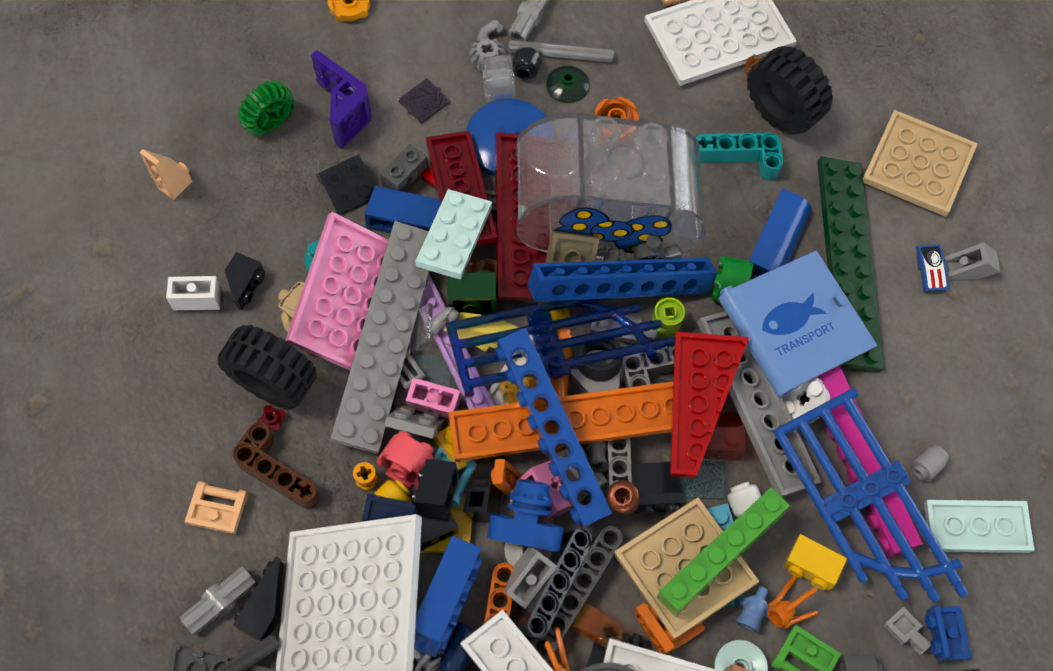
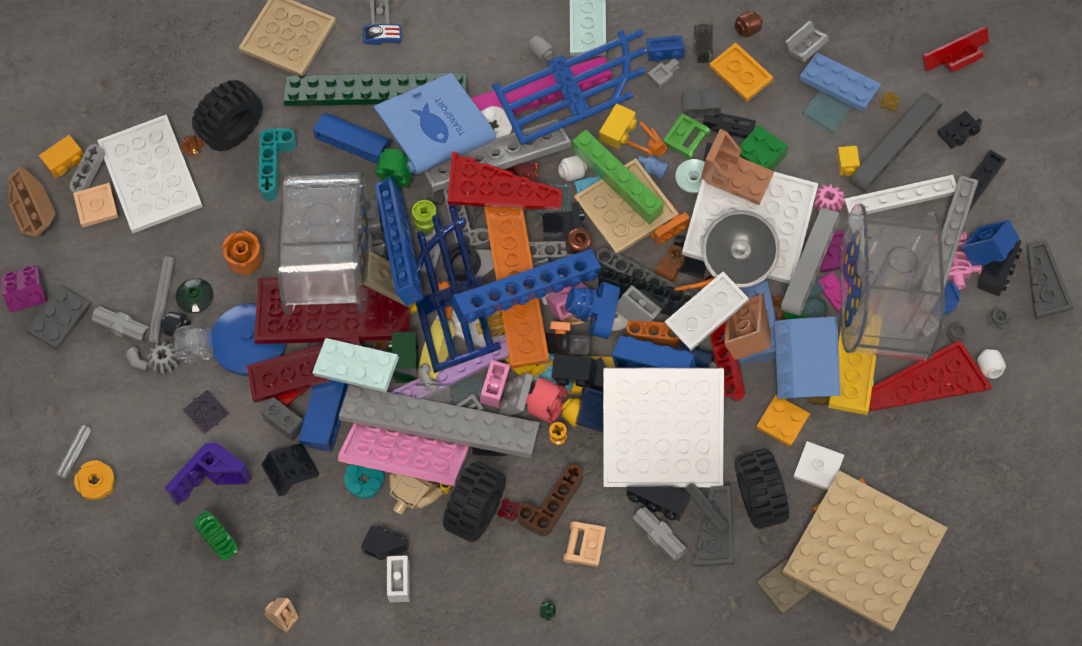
camera: 85 degrees left, 0 degrees up
(136, 461) = (547, 610): none -> dark green plate

